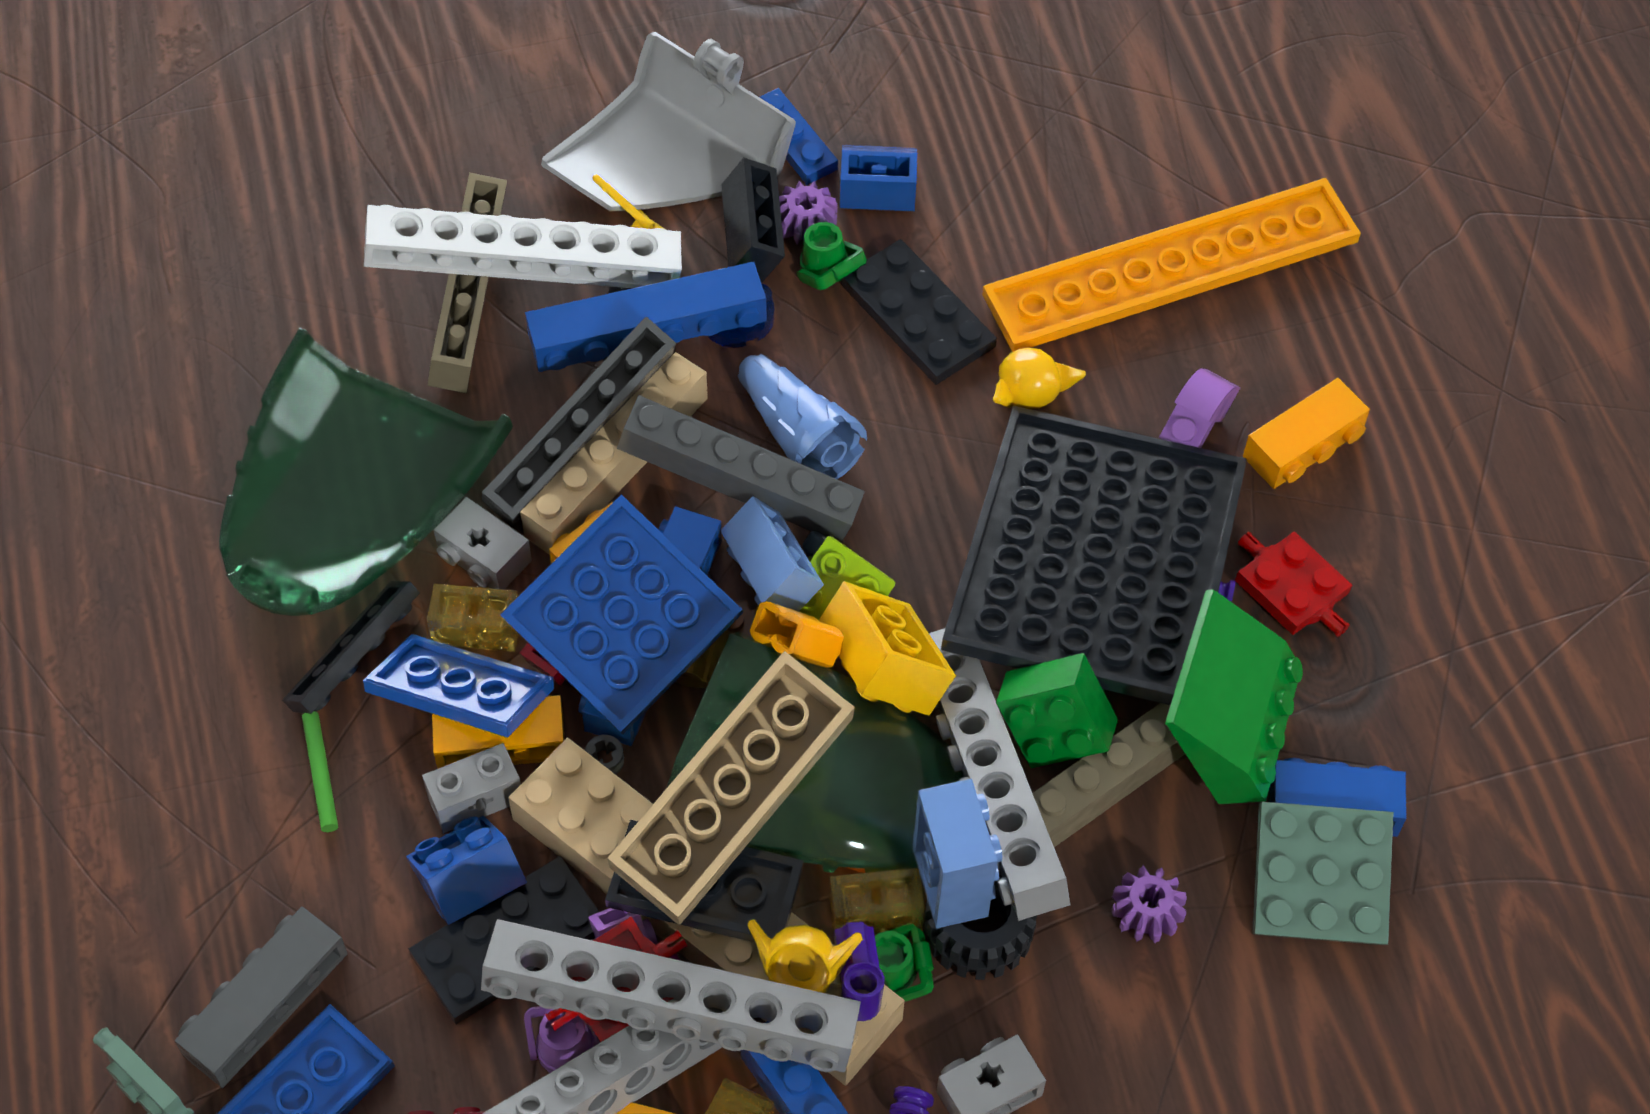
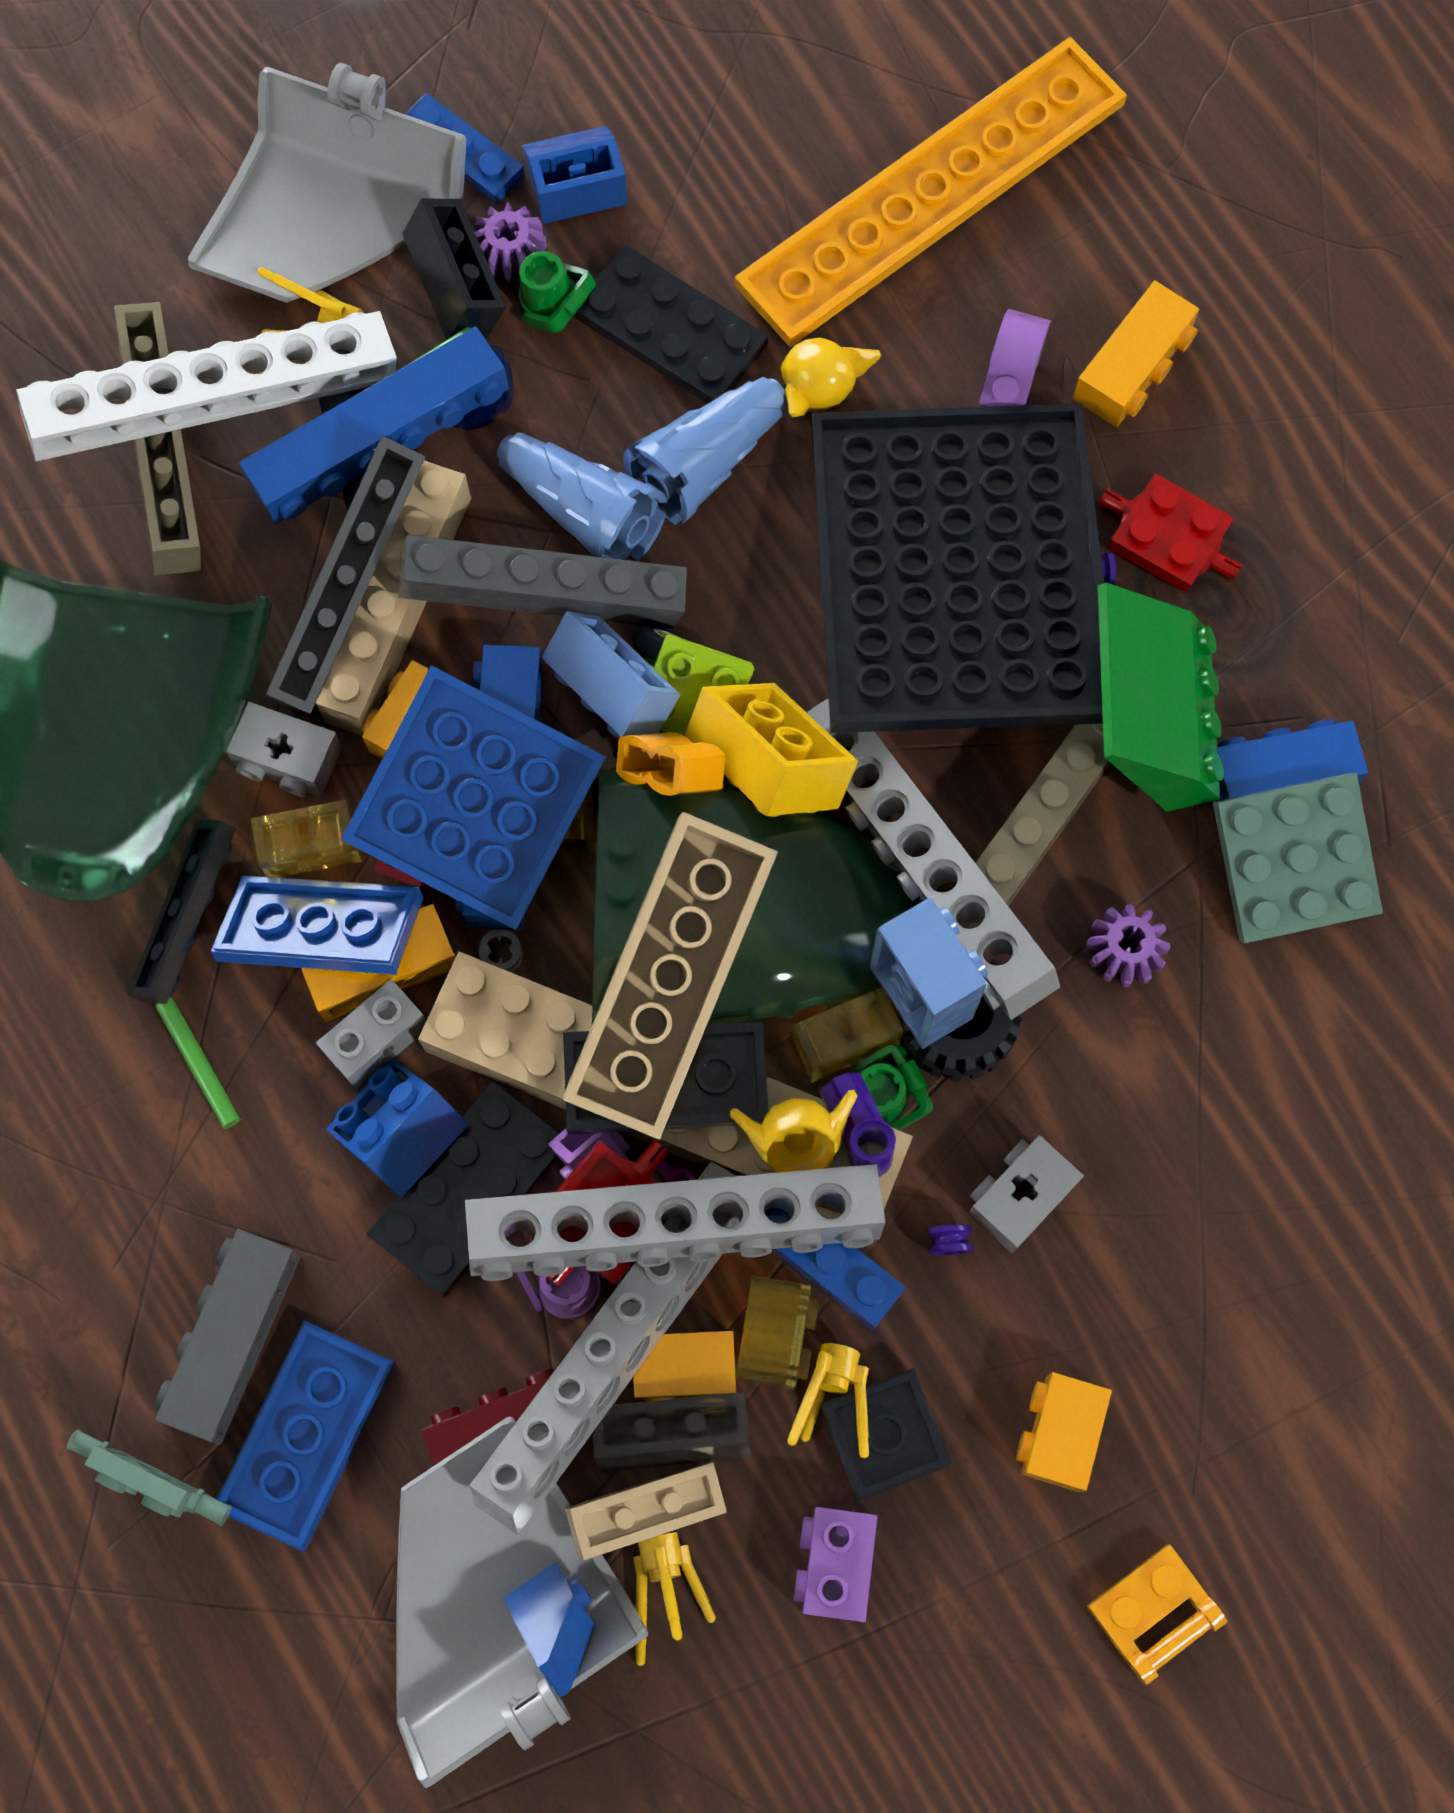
camera: 15 degrees left, 15 degrees up
(913, 405) = (703, 445): none -> medium blue cone
(1057, 711) = (975, 765): green brick -> none

